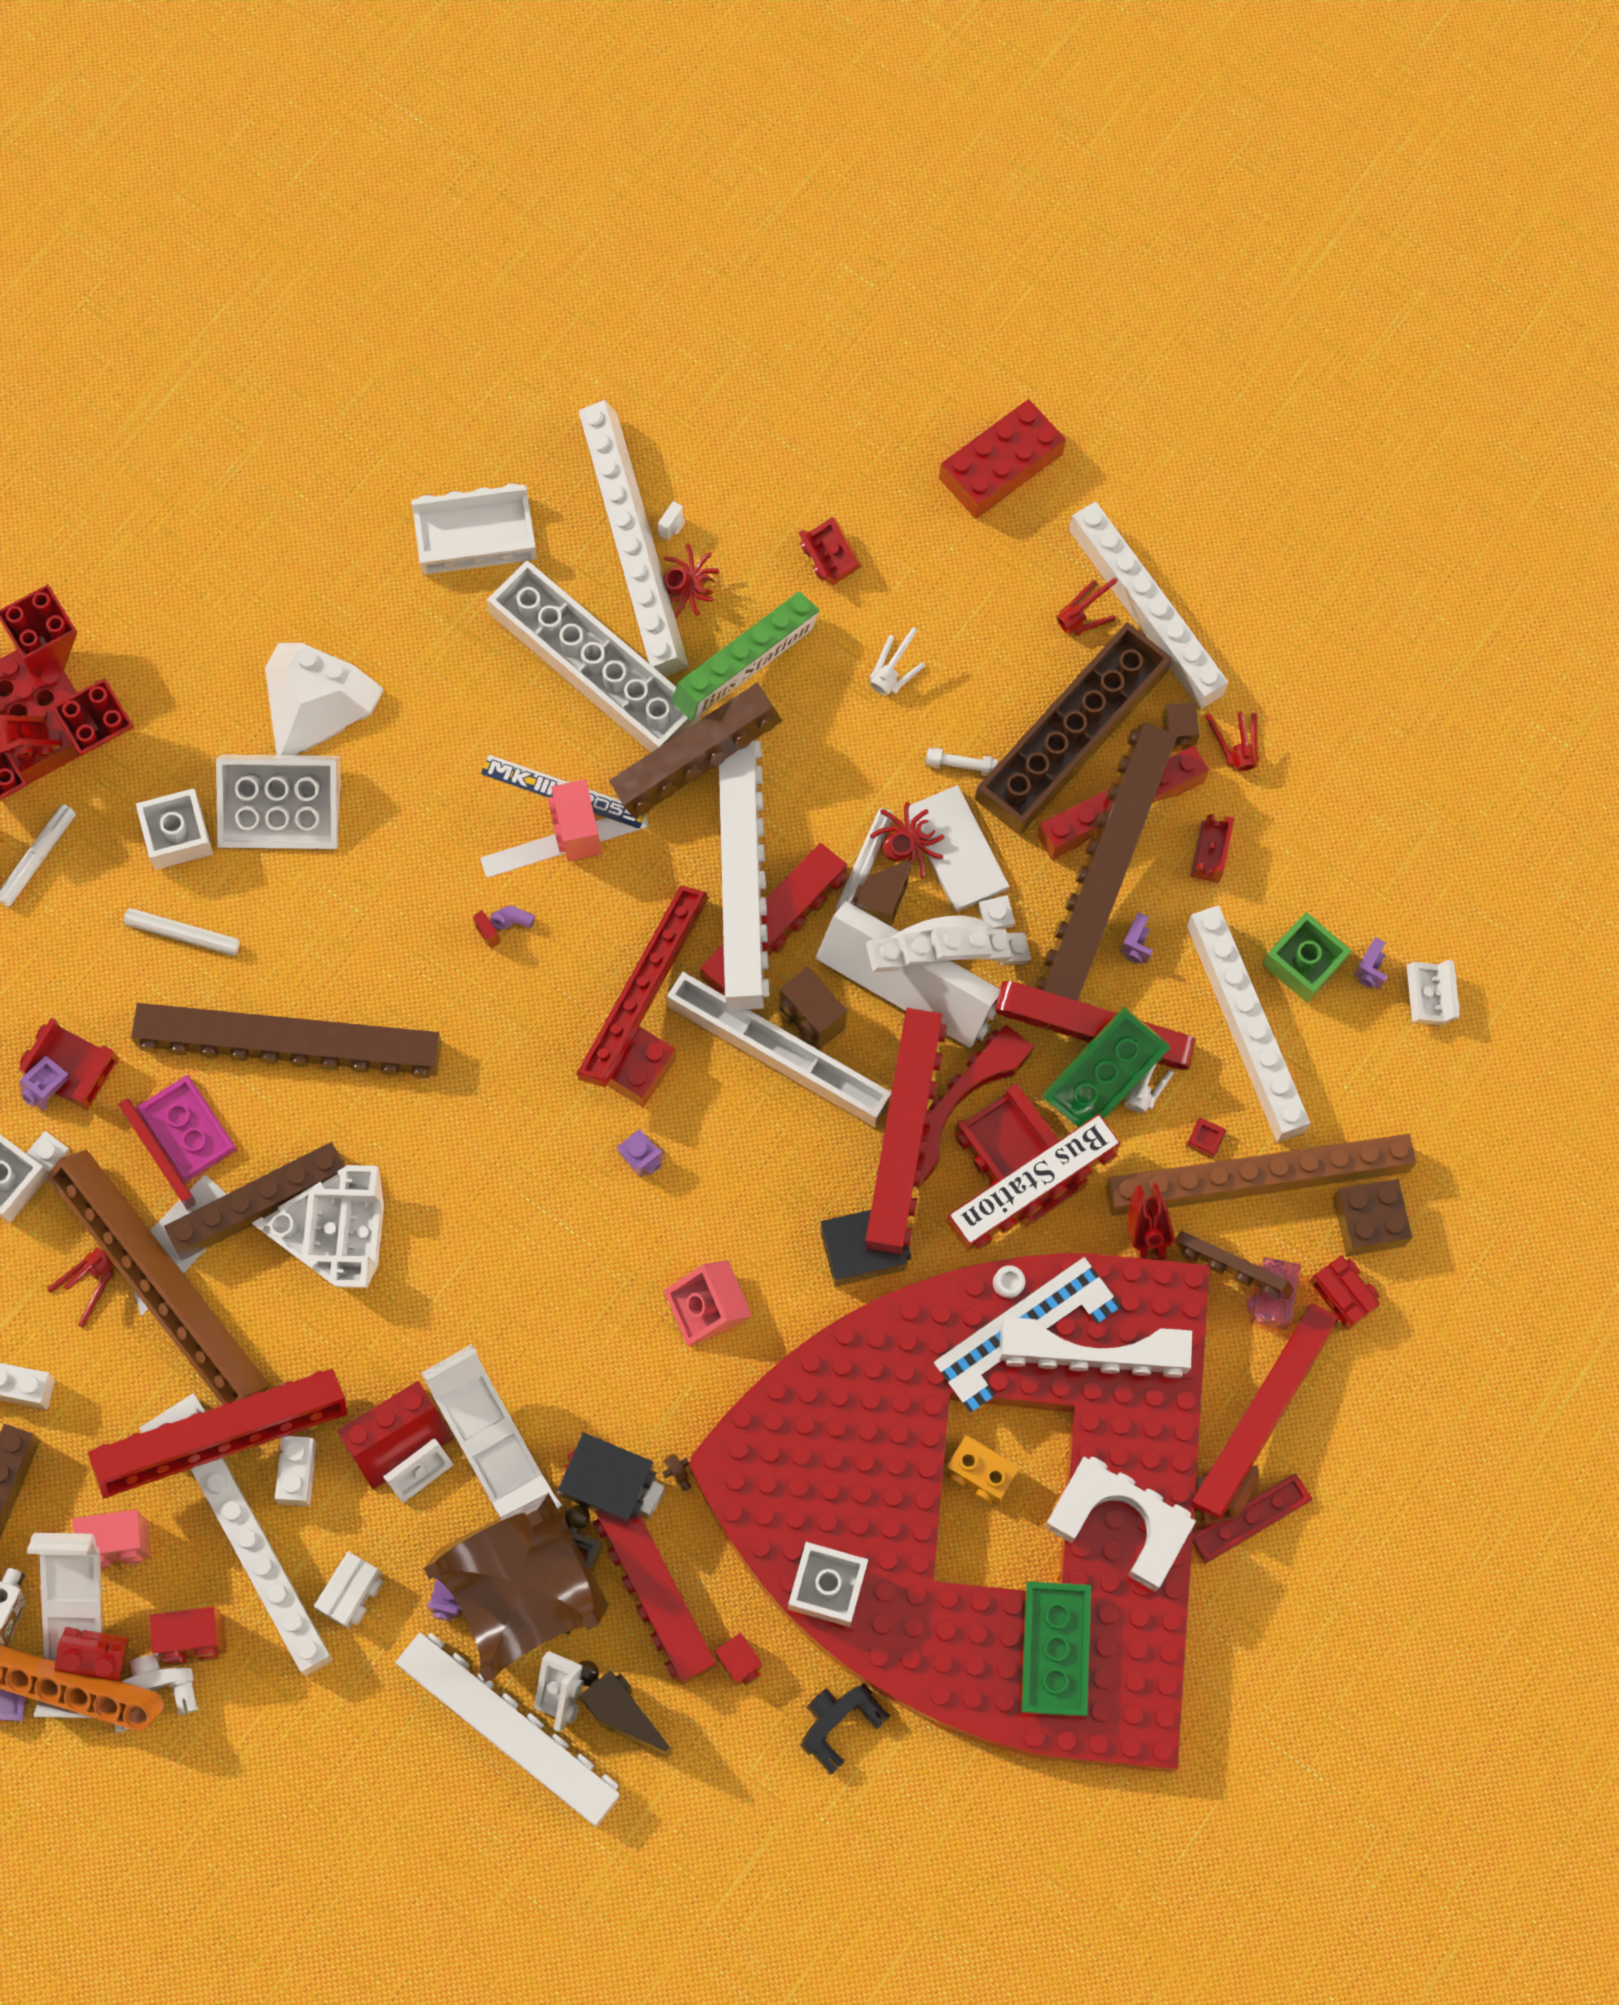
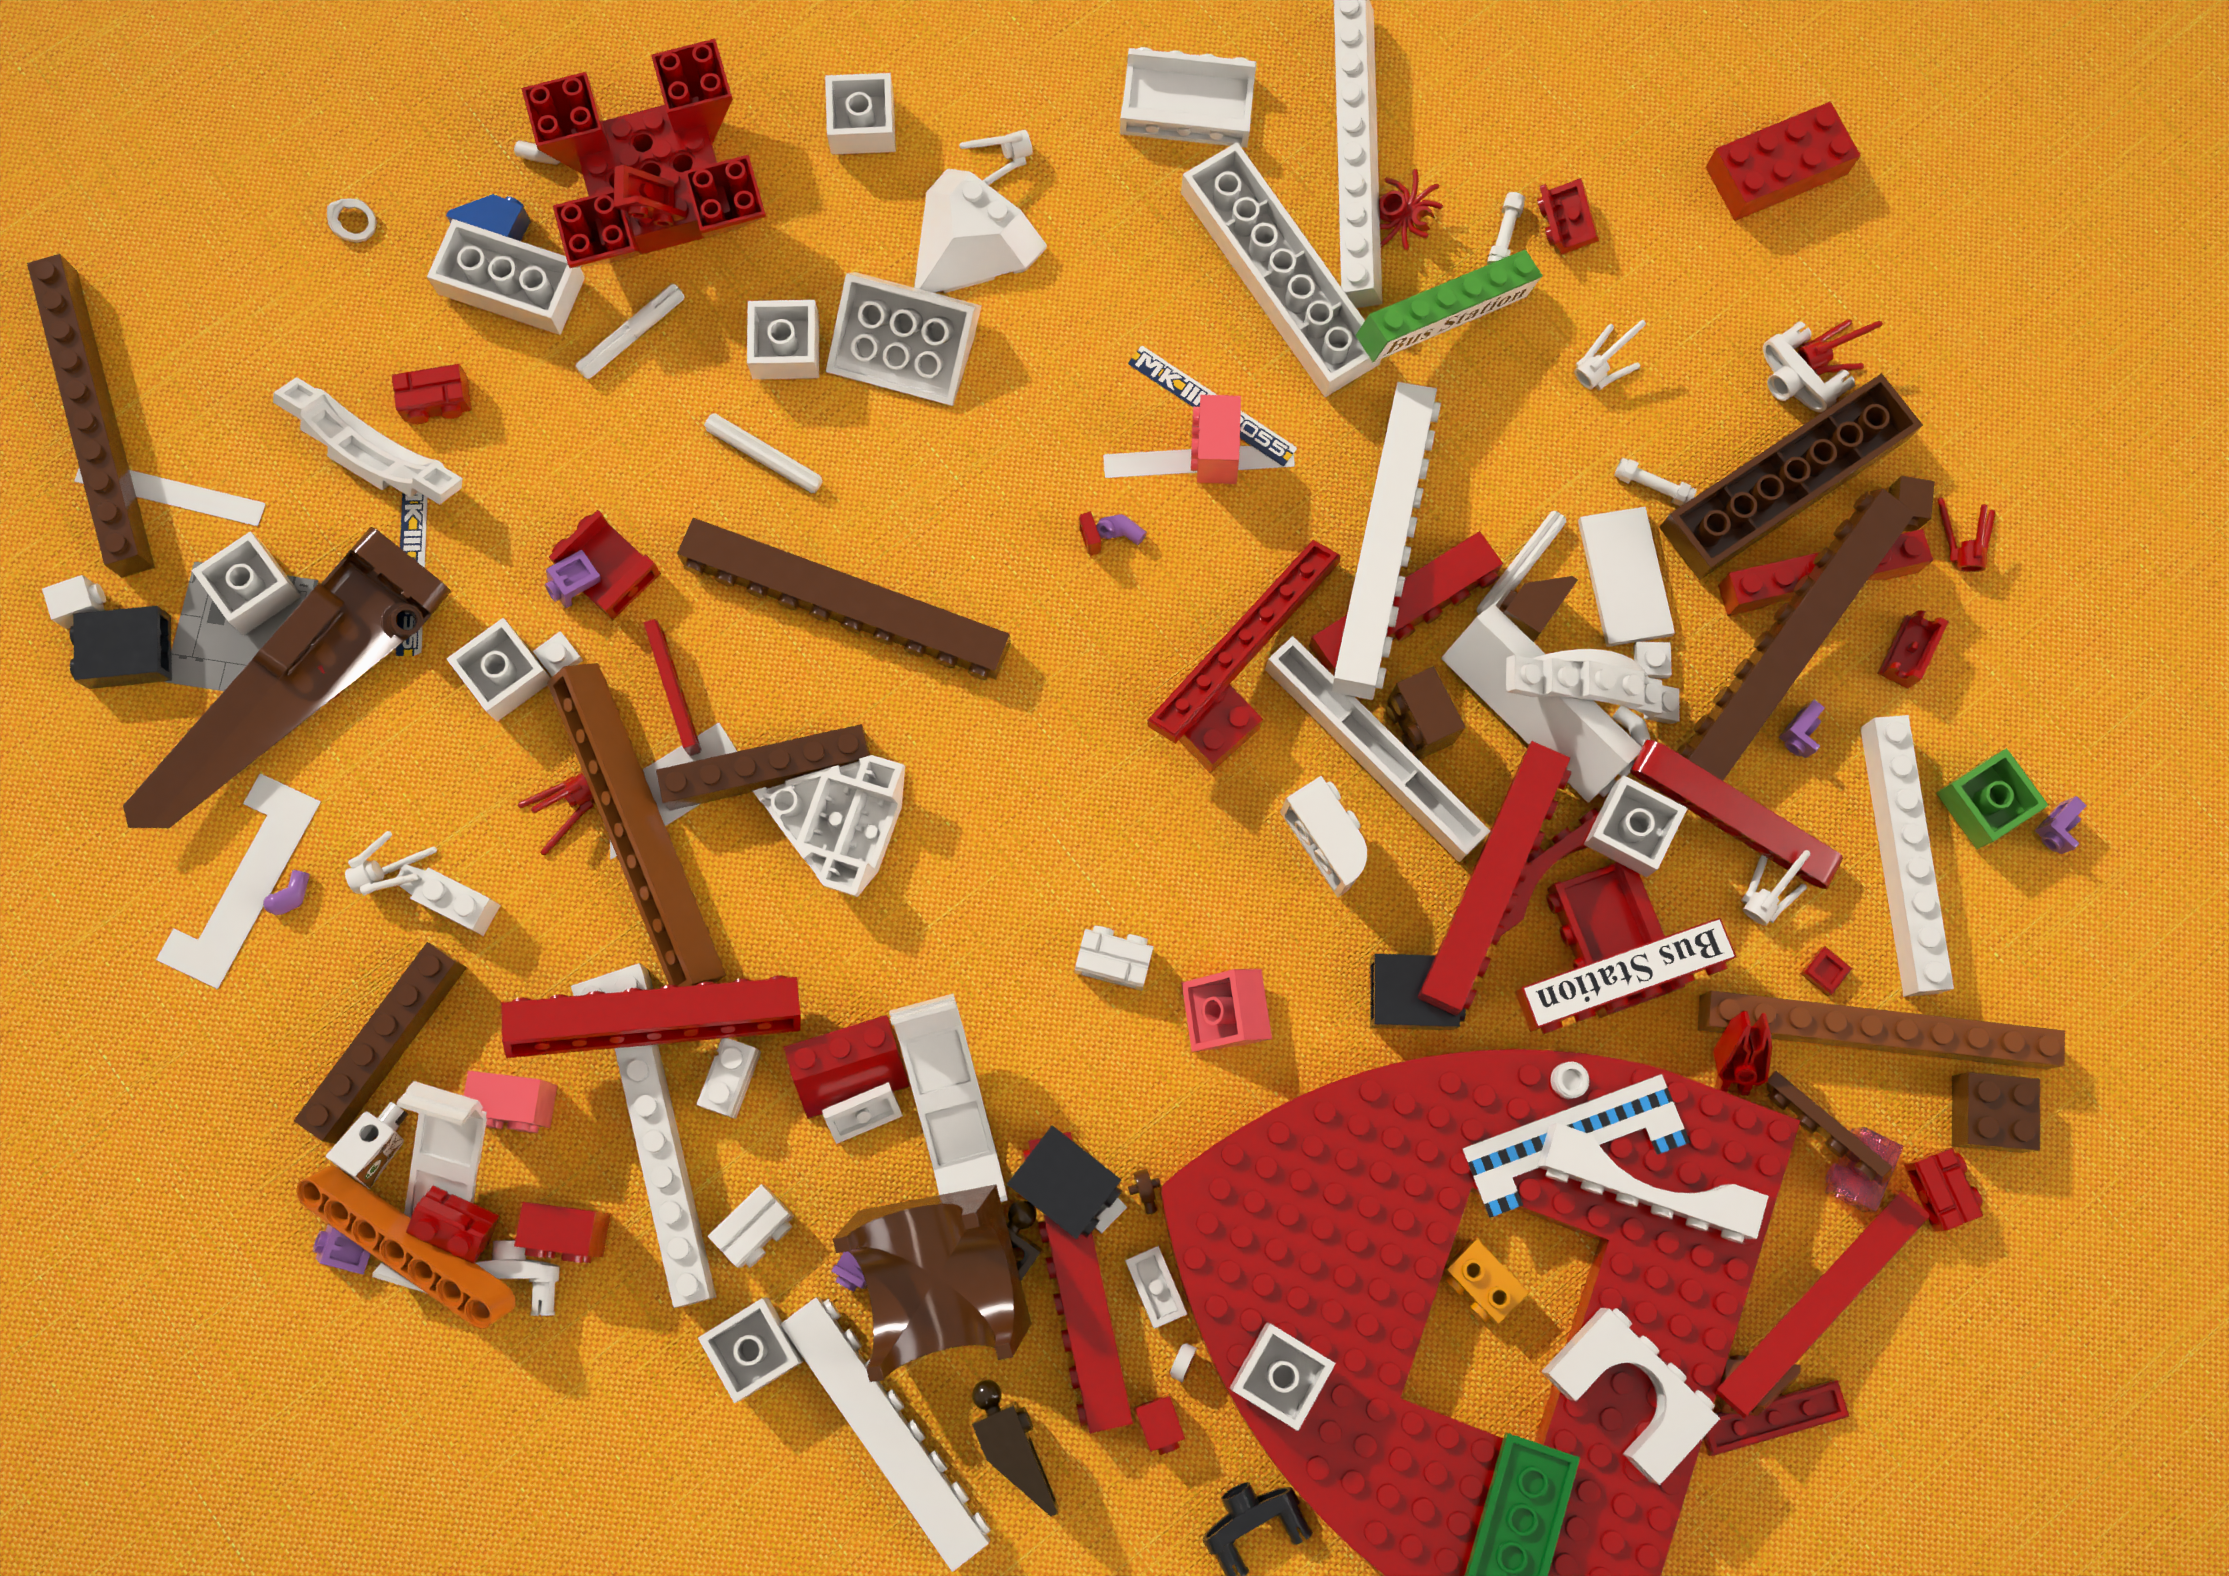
camera: 15 degrees right, 5 degrees up
(186, 1129) = (711, 668): dark pink tile -> none
(189, 615) = (860, 113): none -> white brick
(332, 608) = (1014, 146): none -> white plant
(376, 1690) = (750, 1349): none -> white brick
(558, 1689) = (952, 1405): white bracket -> none
(600, 1284) = (1114, 958): none -> white brick
(641, 1154) = (1195, 824): medium lavender bracket -> none
(671, 521) = (1403, 141): white plate -> none
(695, 750) = (1369, 395): reddish brown brick -> none
(706, 1549) = (1156, 1287): none -> white plate
(746, 1604) = (1183, 1362): none -> white tile
(754, 1130) = (1327, 833): none -> white brick
(780, 556) = (1512, 210): none -> white bar
(908, 838) = (1576, 552): red animal -> none
(994, 972) = (1635, 724): none -> white arm
(1010, 1056) = (1635, 826): none -> white brick
(1057, 641) = (1795, 377): none -> white connector
(1106, 1069) = (1738, 868): green plate -> none
(1148, 604) = (1906, 359): white brick -> none
(1433, 992) = (2125, 875): white bracket -> none

